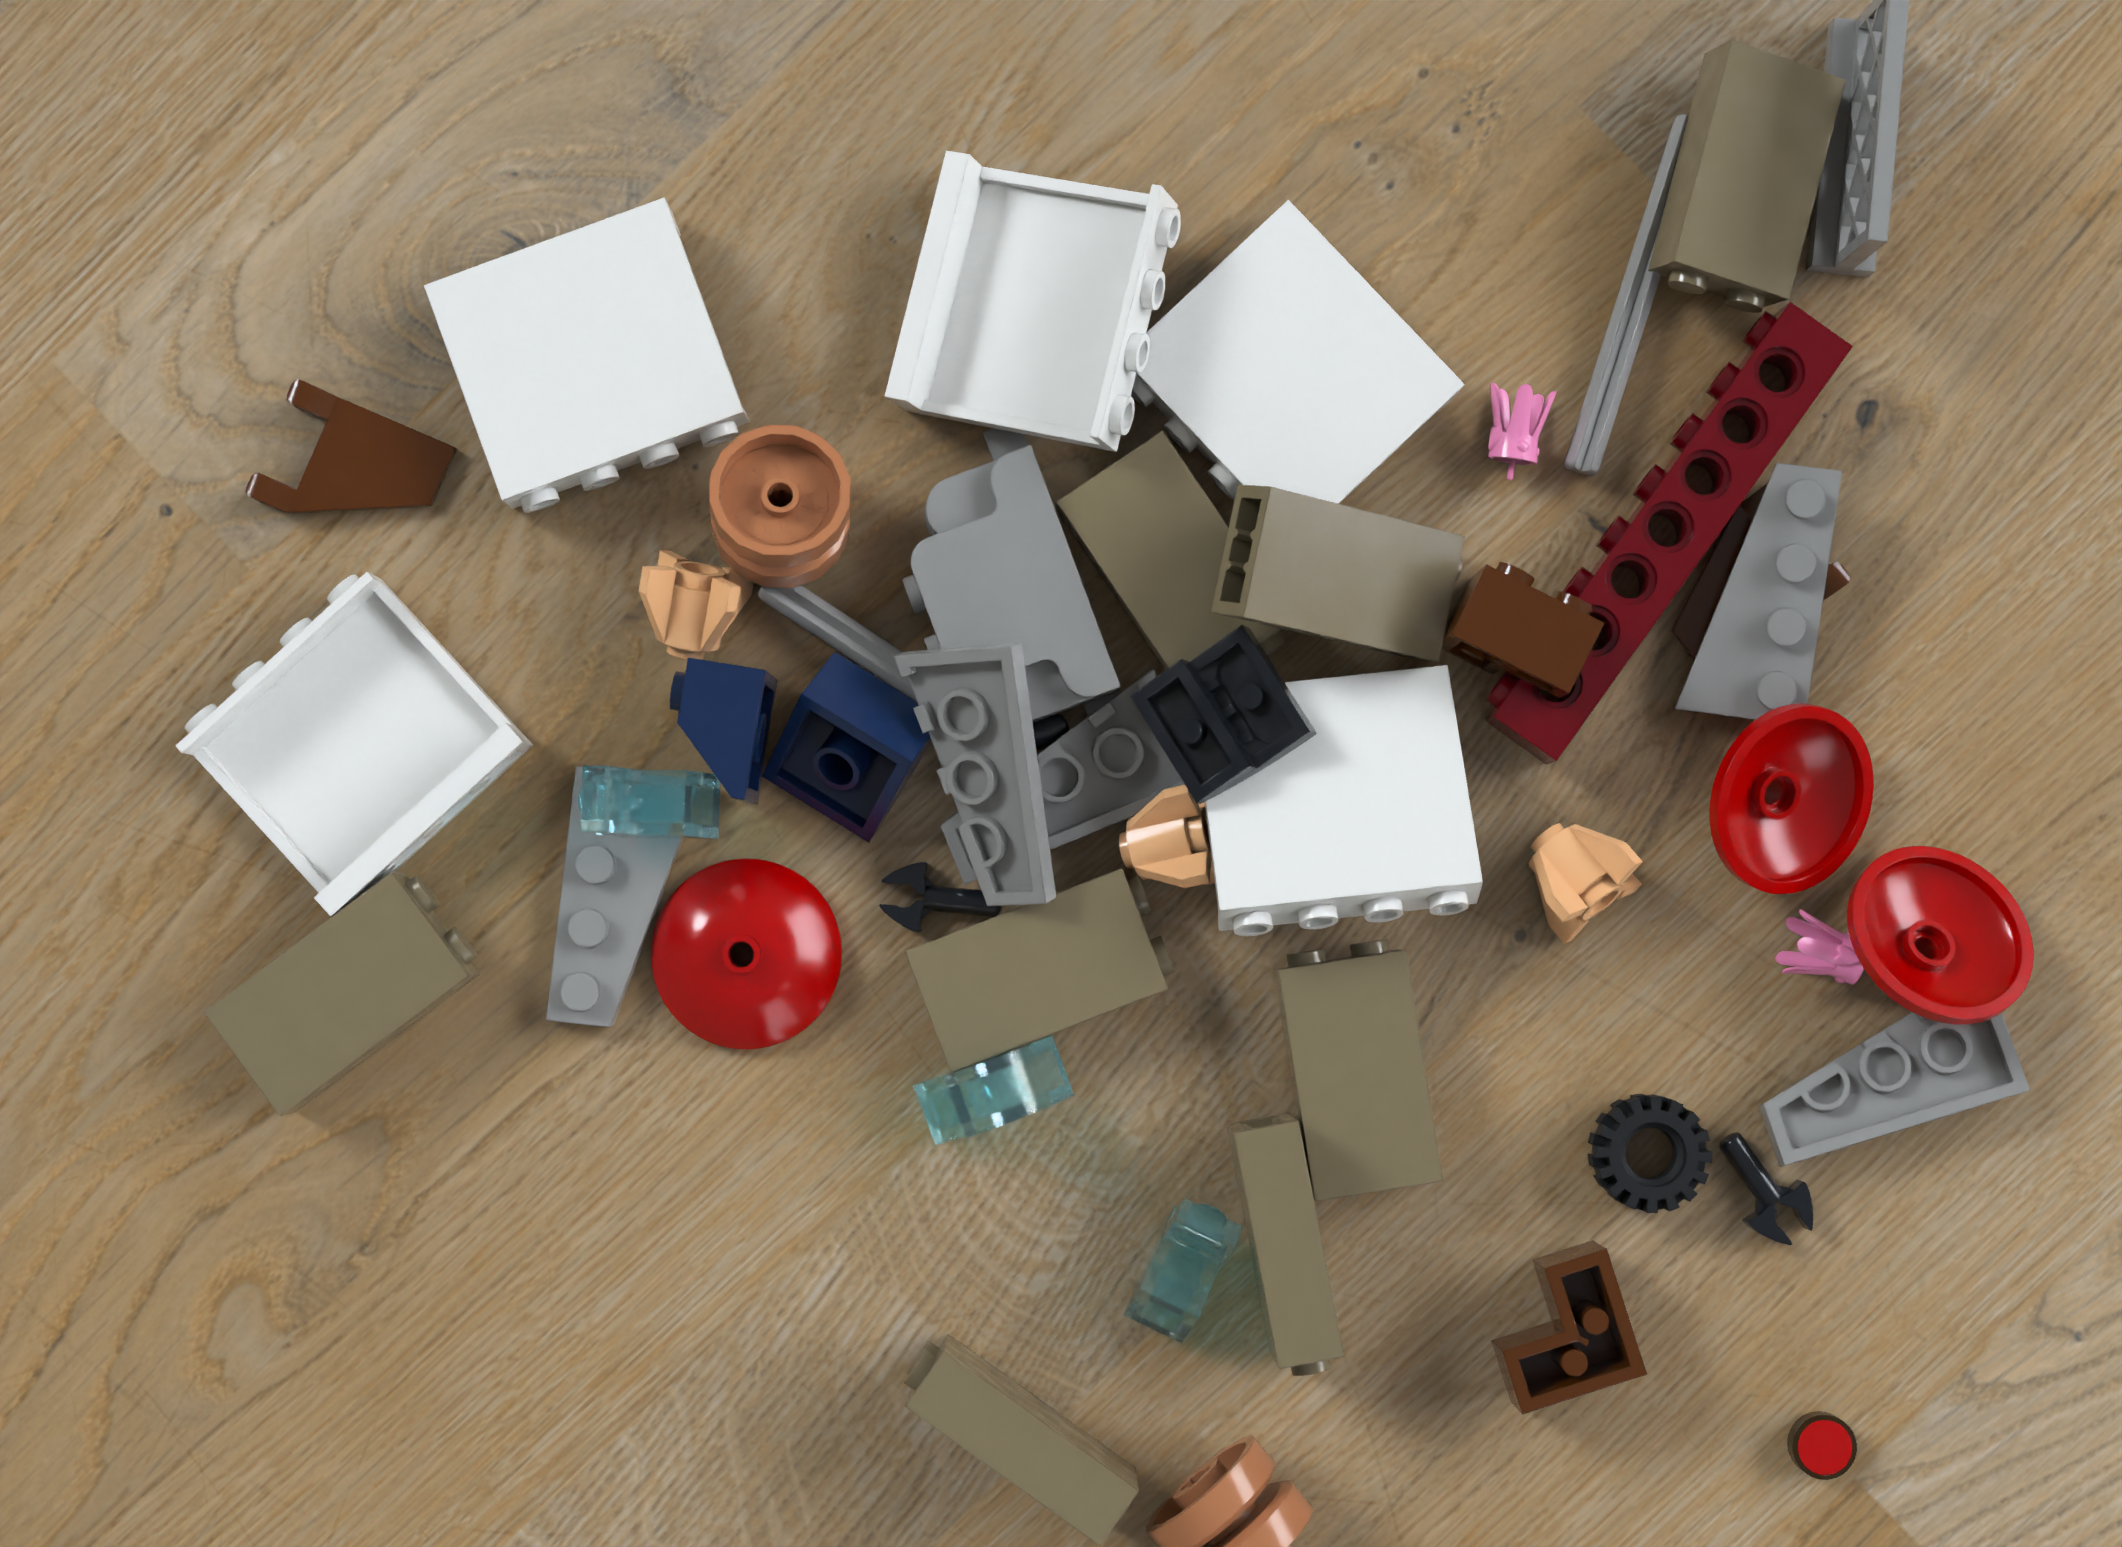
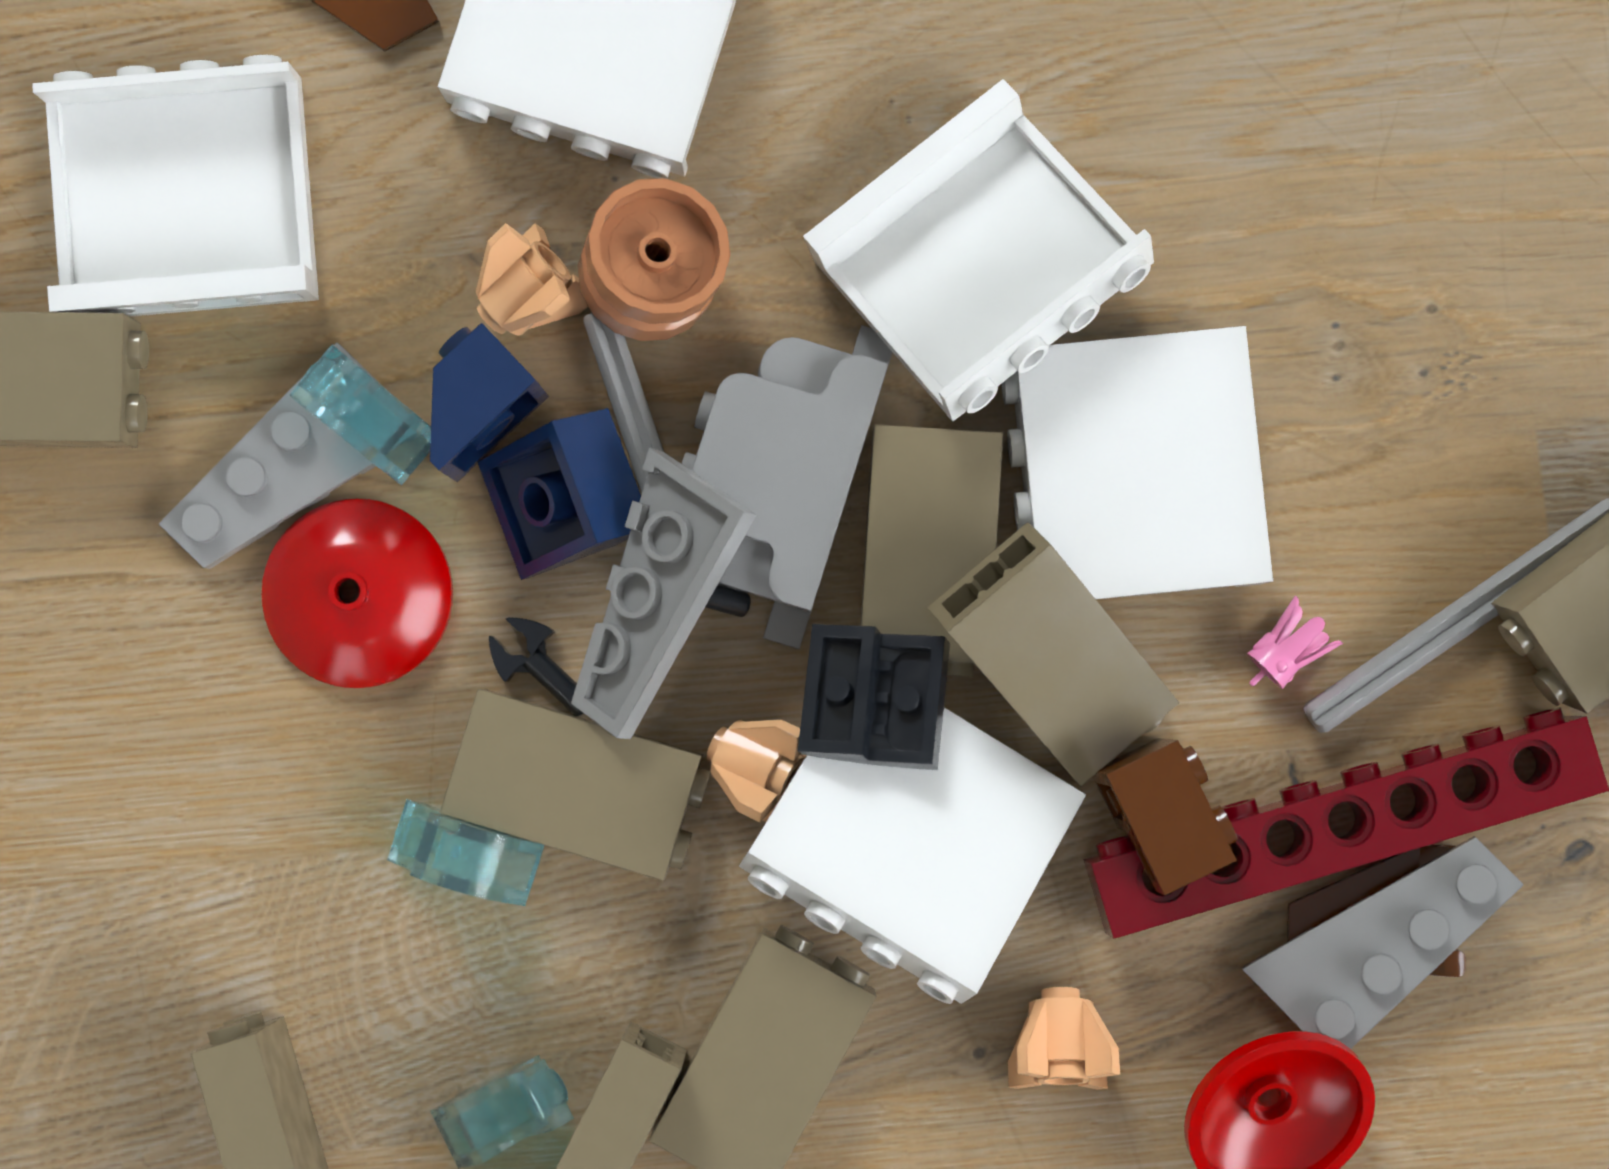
camera: 35 degrees right, 0 degrees up
(1092, 775) = (735, 663): light grey wing -> none

